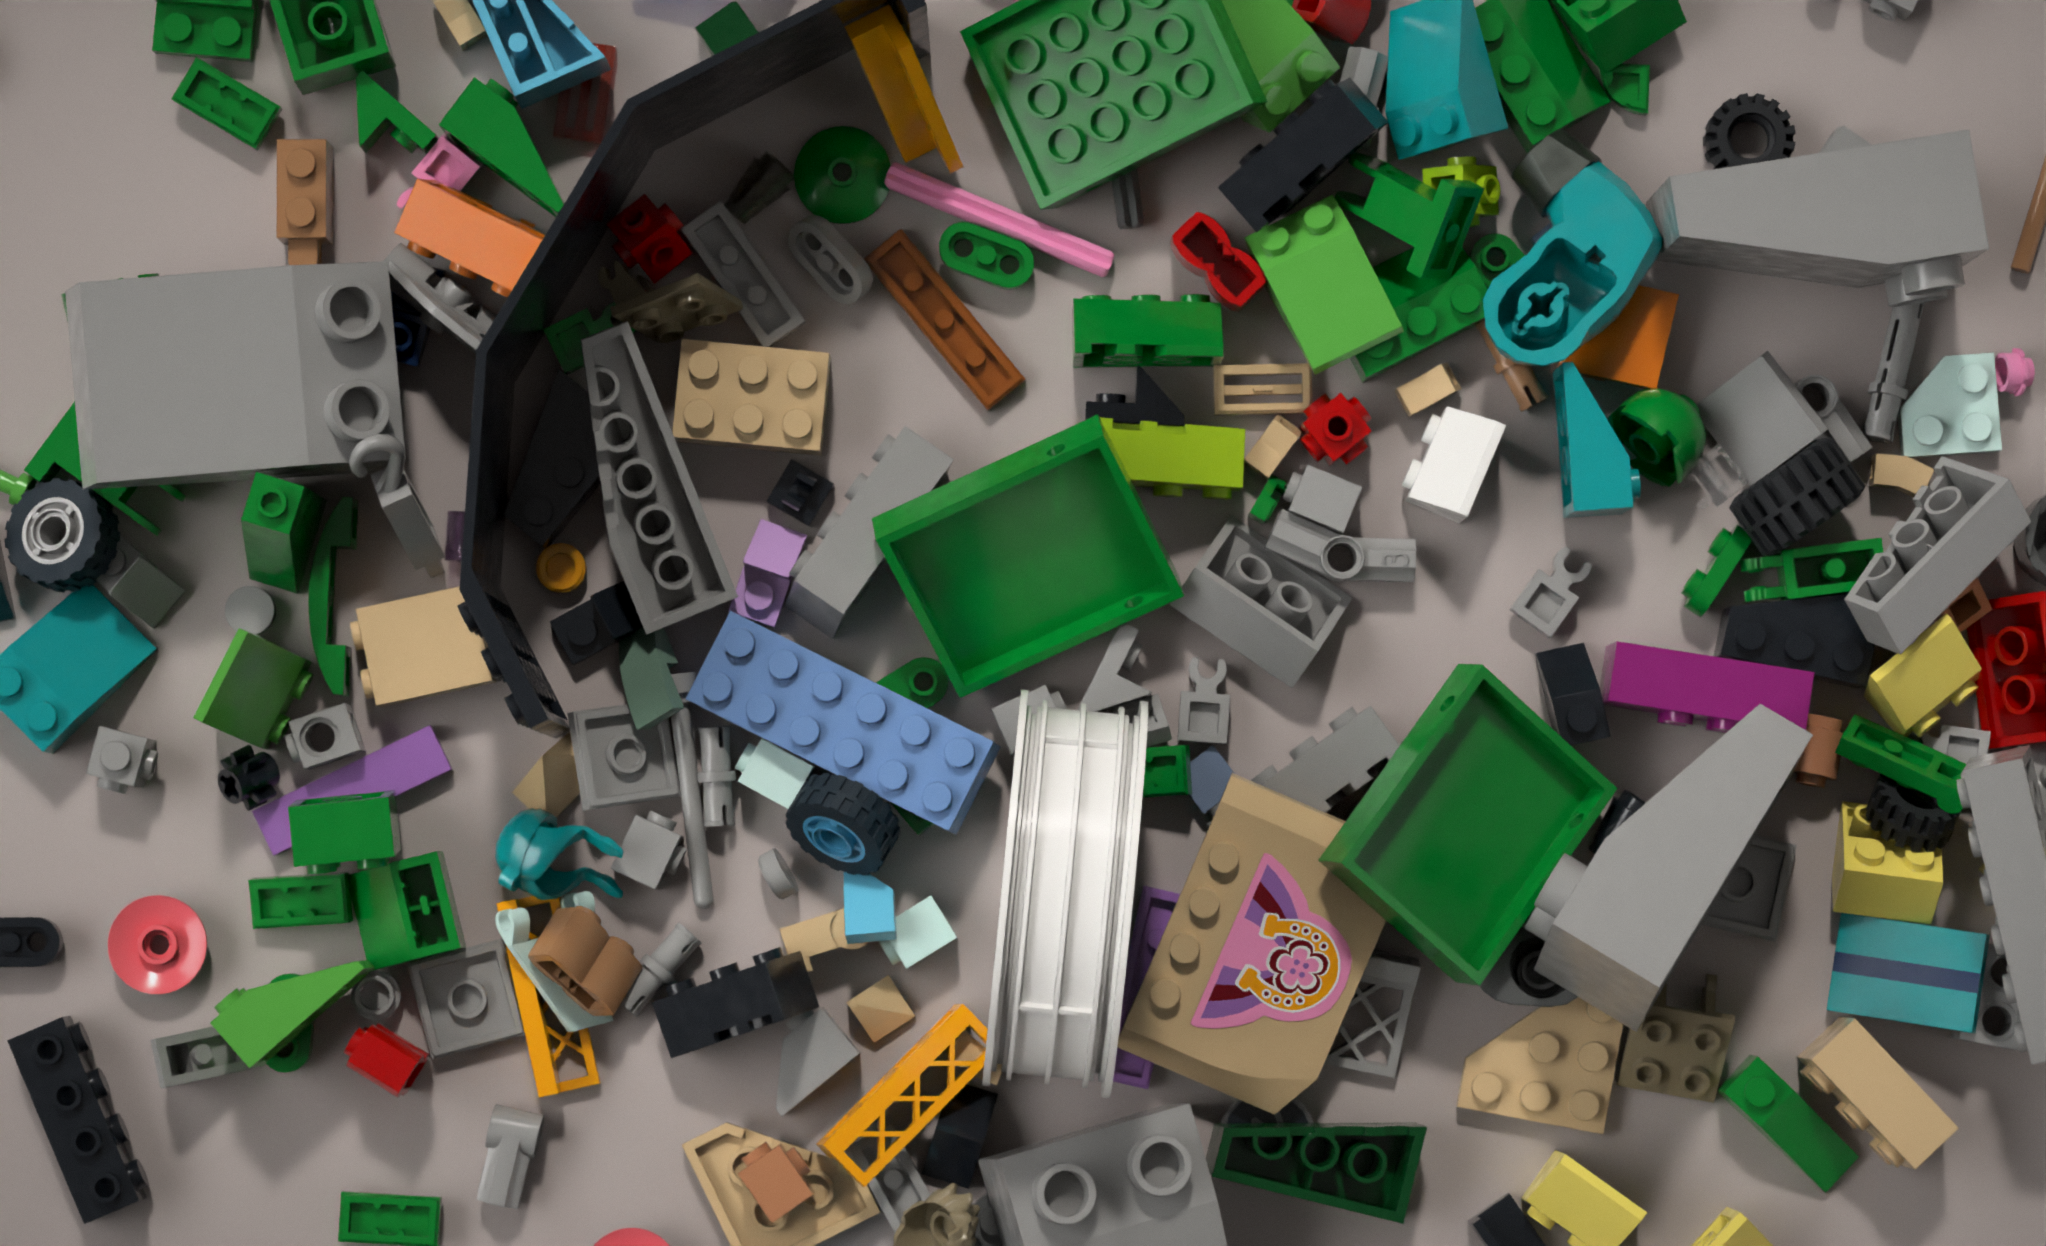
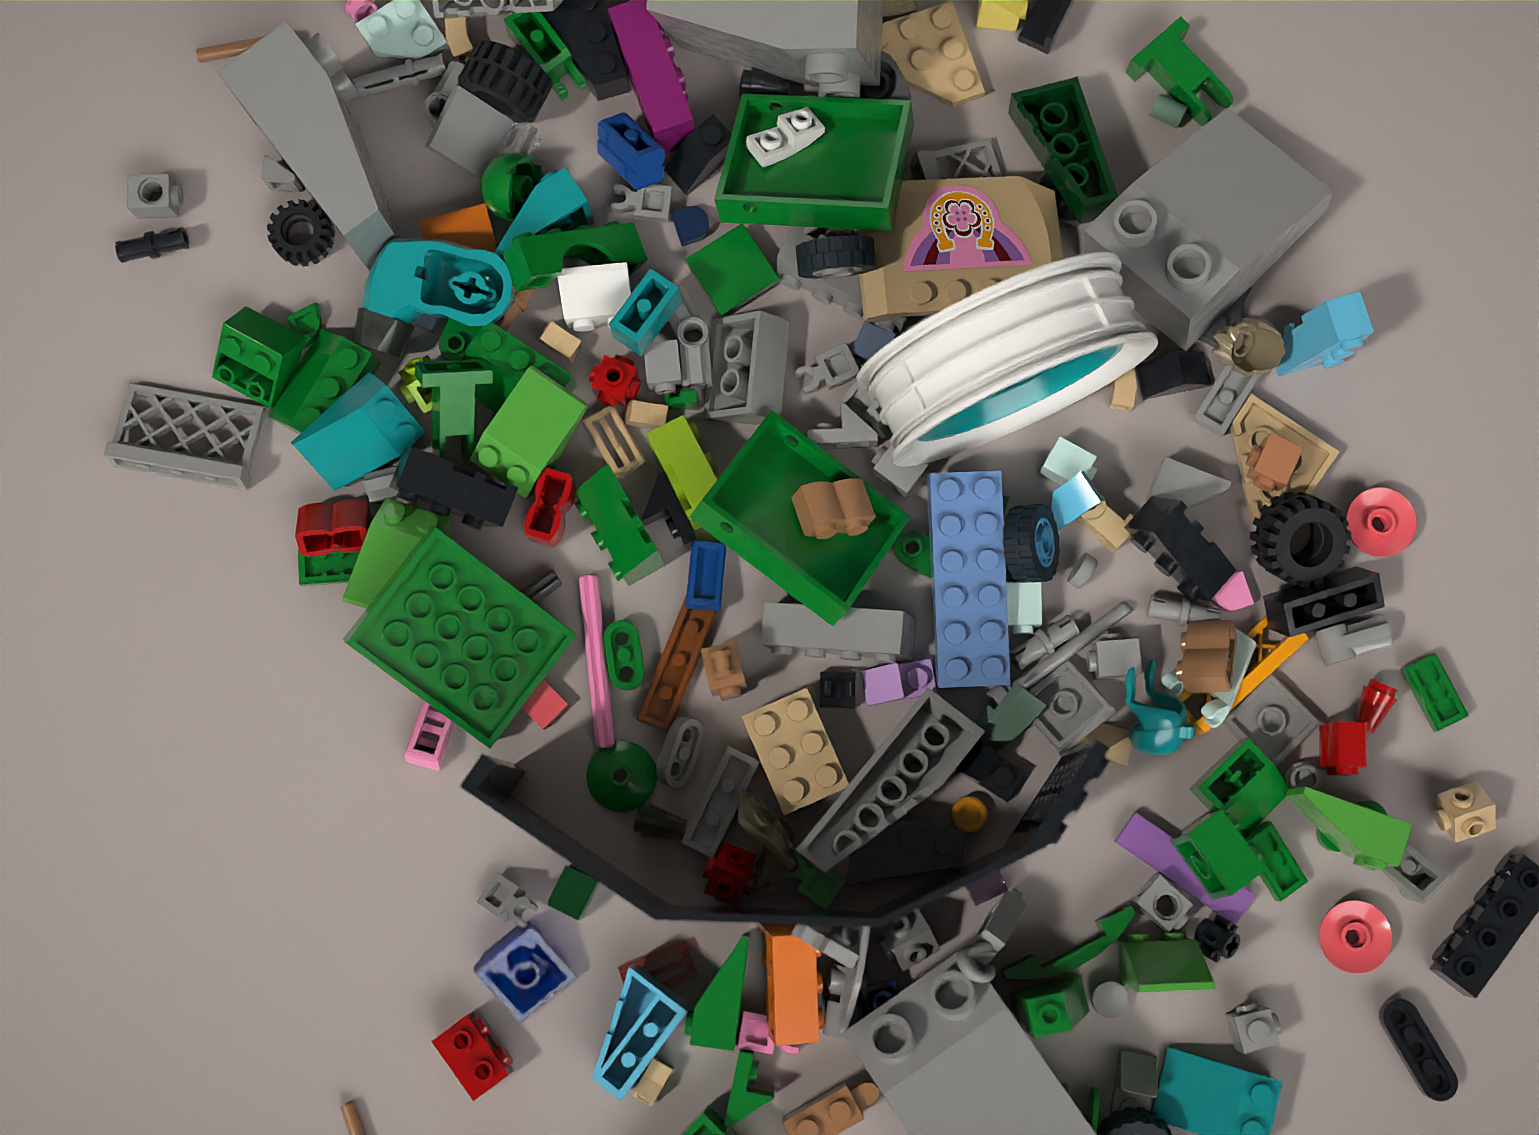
camera: 110 degrees left, 5 degrees down
(228, 1163) = (1465, 811): none -> tan brick
(415, 1135) = (1375, 704): none -> red cone
(418, 648) = (1072, 876): tan brick -> none
(446, 407) = (908, 940): none -> light grey brick
(487, 305) = (833, 946): none -> light grey plate
(573, 1142) = (1335, 600): none -> black brick
(630, 1165) = (1324, 546): none -> black tyre
(646, 1046) = (1234, 594): none -> bright pink tile
(881, 1009) = (1126, 464): tan slope -> none
(894, 1083) = (1172, 426): light orange fence -> none
(895, 363) = (724, 670): none -> medium nougat brick
(901, 87) = (545, 760): light orange fence -> none
(979, 128) = (544, 705): none -> coral tile
(1017, 602) = (833, 508): none -> medium nougat brick
(1026, 405) = (705, 575): none -> blue tile
(1322, 771) = (835, 257): none -> black wheel
(1393, 507) = (645, 312): none -> teal brick
(1398, 652) = (732, 270): none -> green tile
(1490, 635) = (690, 224): none -> dark blue tile
(1522, 808) = (792, 134): none -> white slope
(1526, 409) = (538, 258): none -> green arch
(1620, 607) = (630, 150): none -> blue brick
(1704, 587) = (576, 111): green plate -> none

